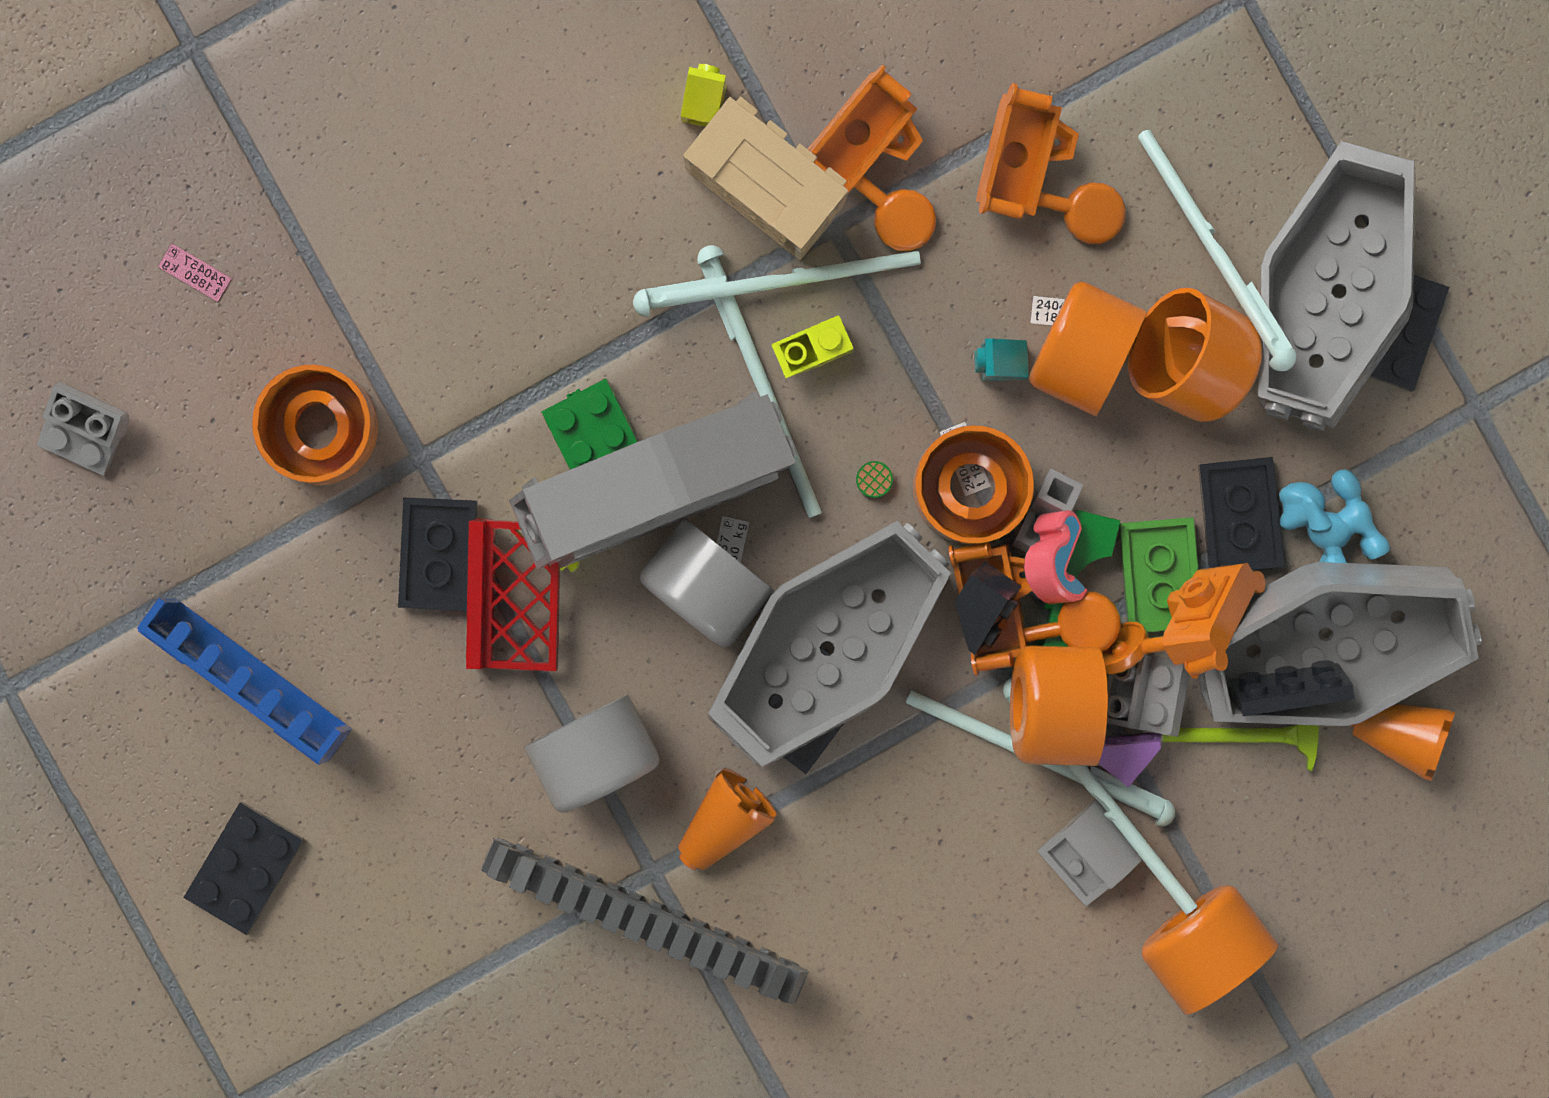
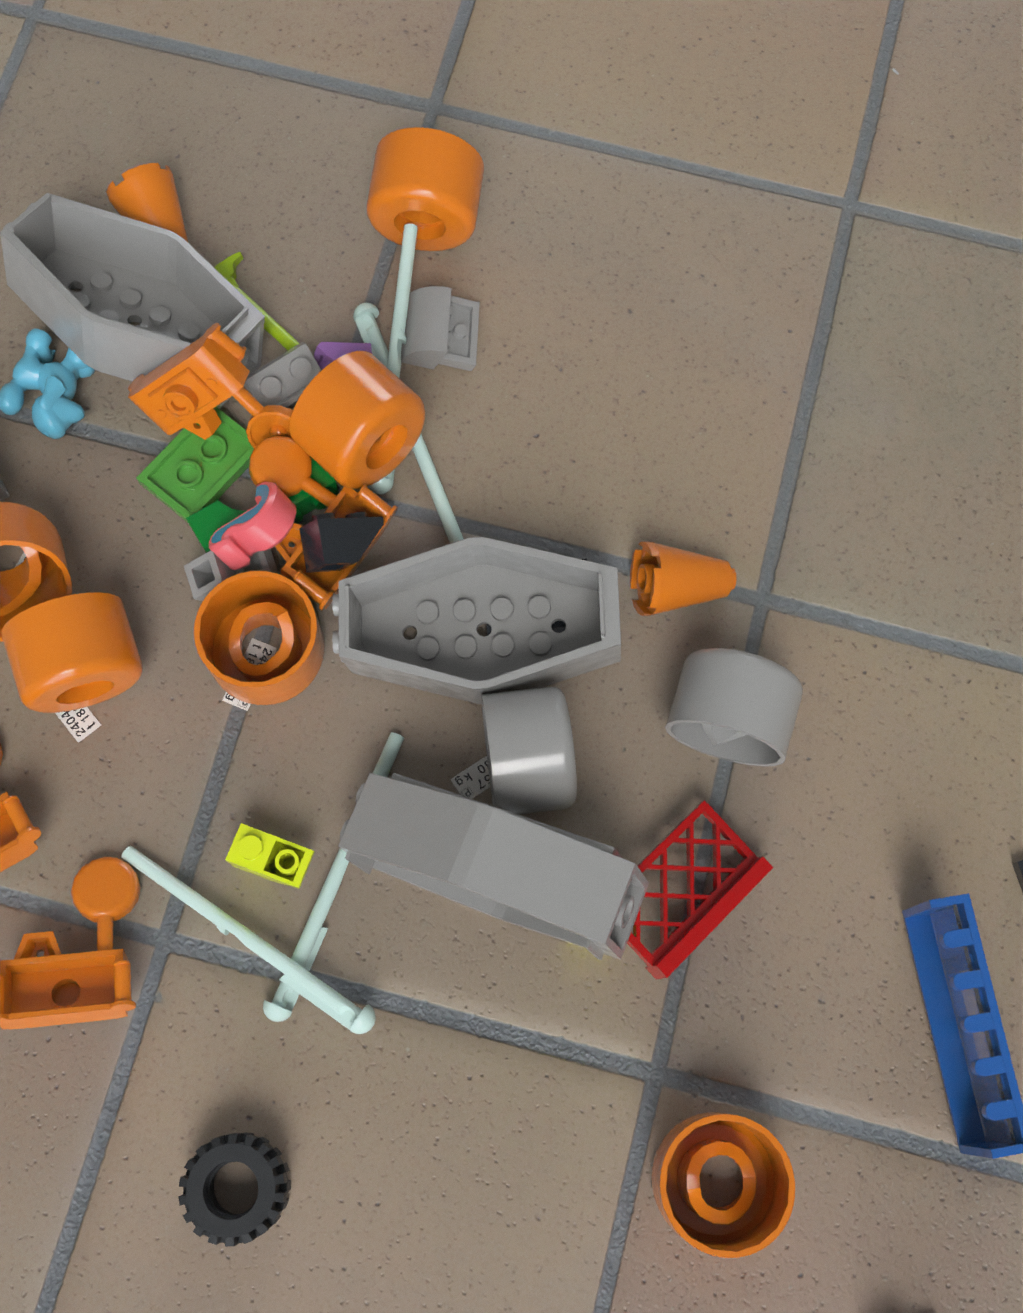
camera: 140 degrees left, 15 degrees down
(435, 553) = (714, 983): black plate -> none
(589, 424) = (500, 965): green plate -> none
(623, 93) = (199, 1193): none -> black tyre
(642, 920) = (868, 676): dark grey piece -> none
(703, 94) = (147, 1145): neon yellow slope -> none
(766, 177) = (164, 1021): tan container -> none
(874, 479) = (328, 720): tile -> none
(1002, 359) = (147, 712): teal slope -> none
(1241, 513) = (104, 451): black plate -> none
(1290, 688) = (187, 289): black plate -> none

